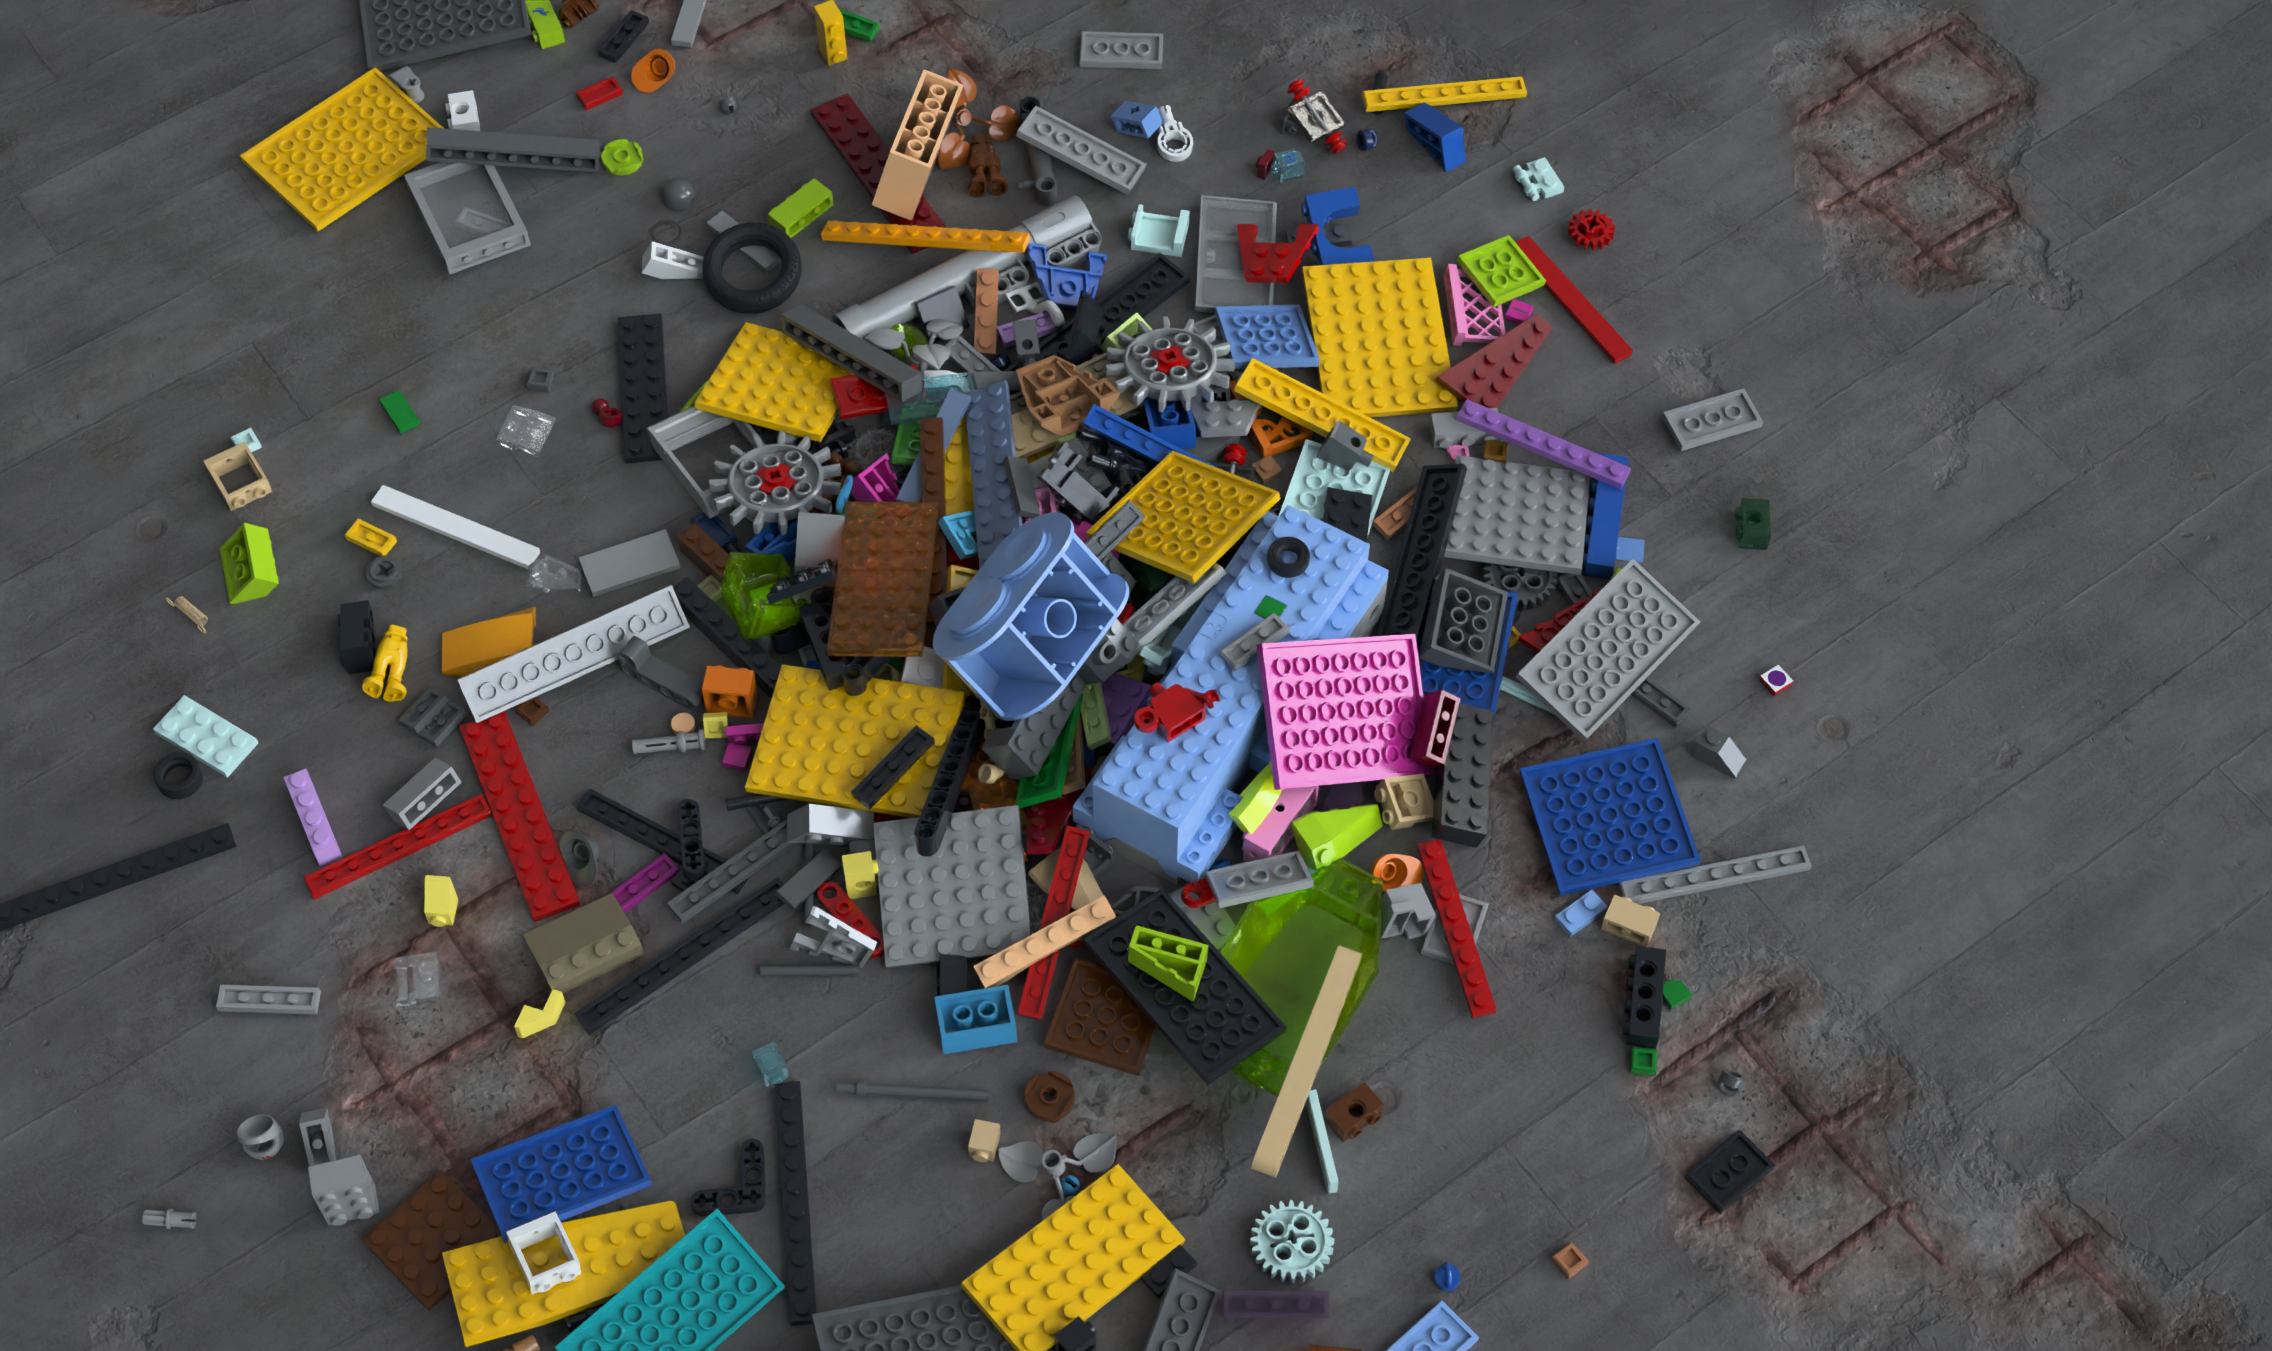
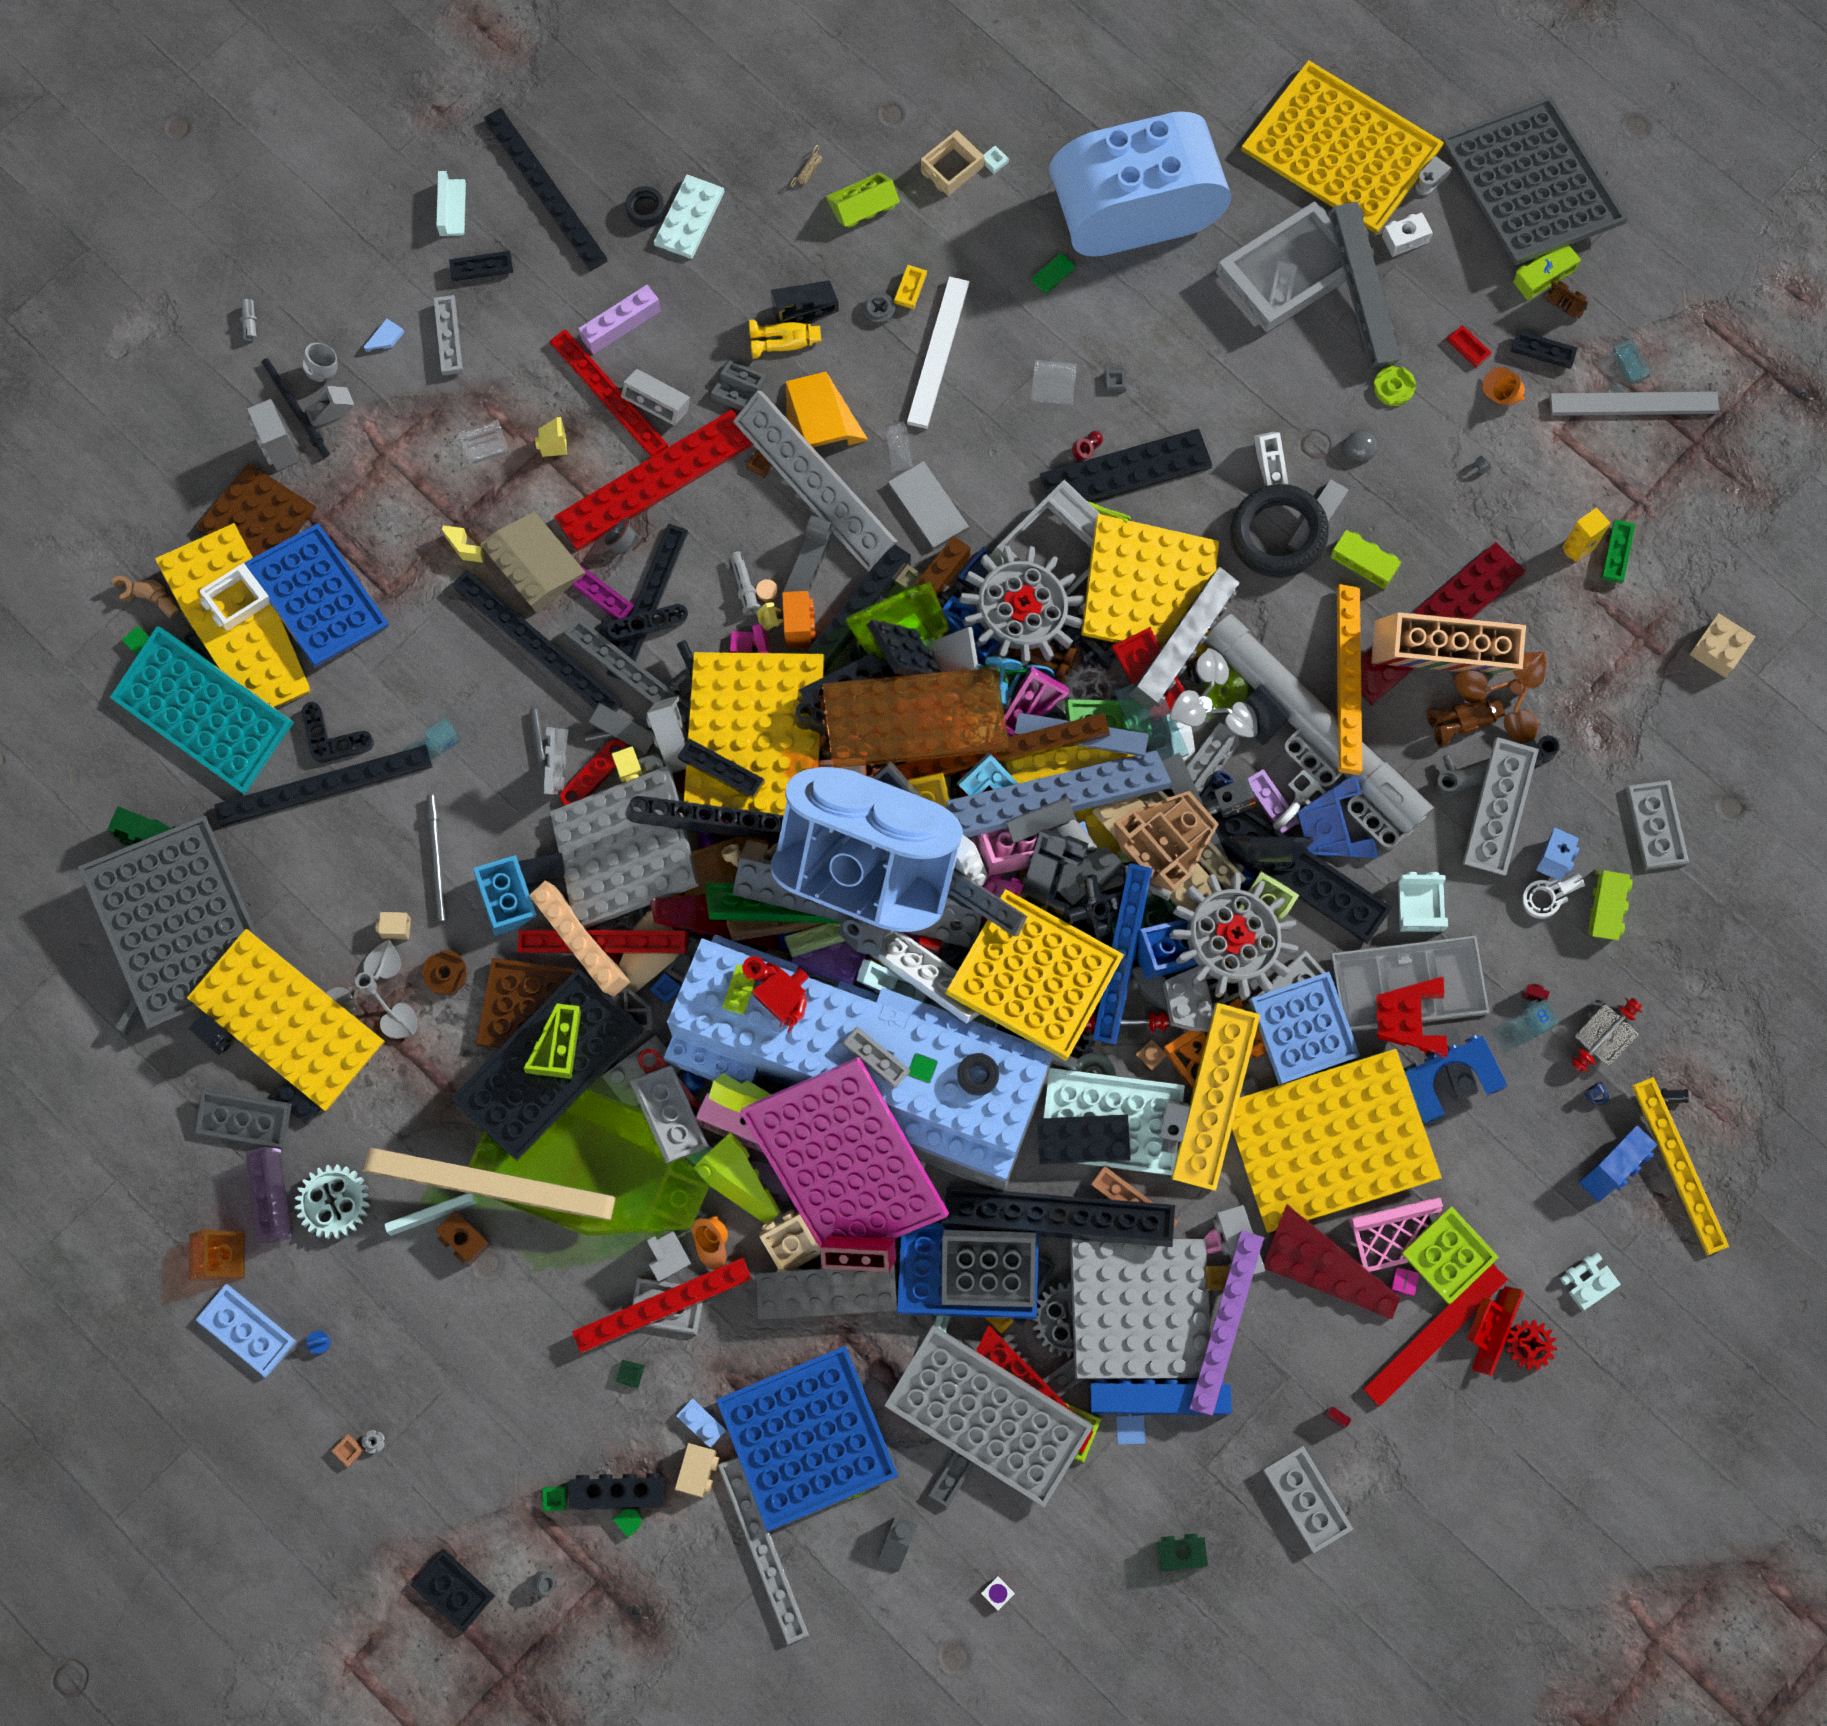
camera: 80 degrees right, 15 degrees up
(98, 978) = (450, 205): none -> light aqua panel
(191, 954) = (481, 266): none -> black plate
(244, 1069) = (385, 336): none -> light blue tile
(290, 1185) = (314, 437): none -> black bar
(337, 296) = (1139, 183): none -> light blue brick
(986, 311) = (1274, 754): nougat plate -> none
(1067, 1189) = (368, 1008): dark azure hinge -> none
(1113, 880) = (665, 989): none -> blue plate
(1159, 751) = (738, 992): none -> lime plate
(1191, 92) = (1609, 904): none -> lime wedge
(1521, 972) = (630, 1374): none -> clear green tile
(1559, 1236) = (379, 1441): none -> light grey plate
(1573, 252) = (1492, 1328): none -> red bracket
(1639, 382) = (1338, 1417): none -> dark red tile

